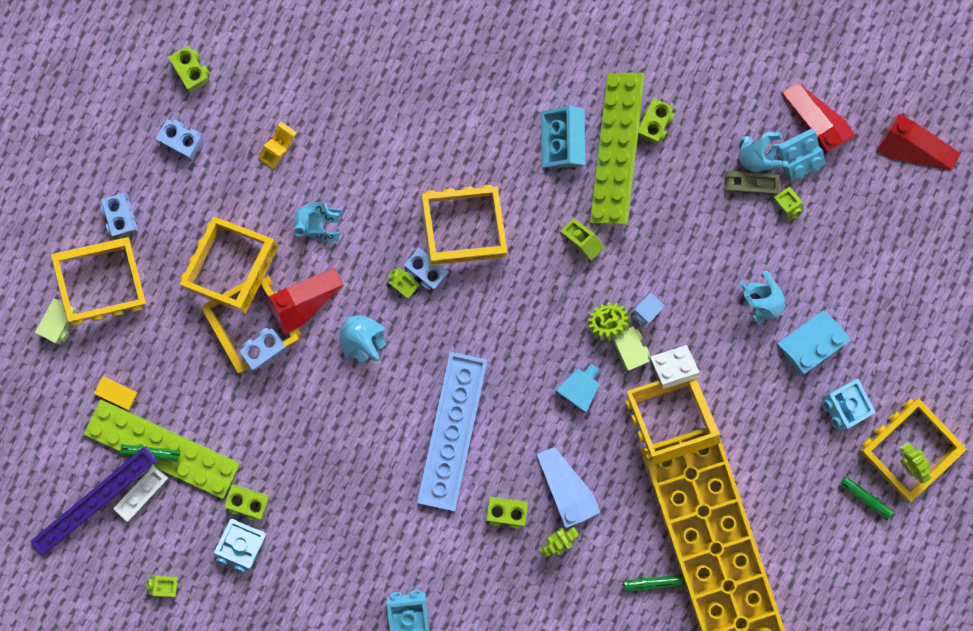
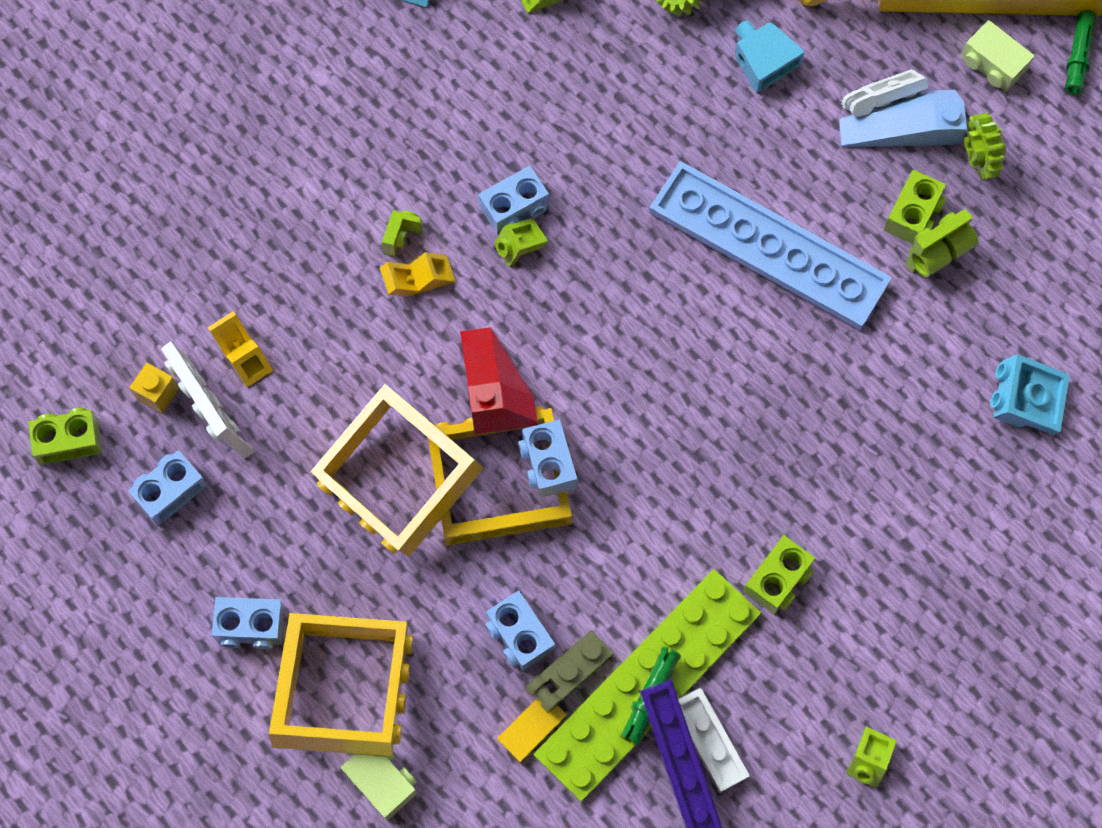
camera: 65 degrees left, 15 degrees down
(152, 403) = (570, 670): none -> olive plate
(169, 371) = (527, 628): none -> light blue brick
(234, 107) = (154, 388): none -> yellow brick
(236, 139) = (206, 404): none -> white wing
(239, 546) = (846, 610): plate -> none
(309, 220) = (365, 330): medium azure piece -> none
(357, 338) = (575, 321): medium azure piece -> none
(359, 230) = (421, 275): none -> yellow slope
(379, 207) = (397, 228): none -> lime bracket
(467, 254) = (465, 168): yellow window -> none
(491, 538) = (944, 243): none -> lime plate
(580, 469) = (884, 92): none -> white hinge
(629, 532) = (997, 56): none -> yellowish green brick

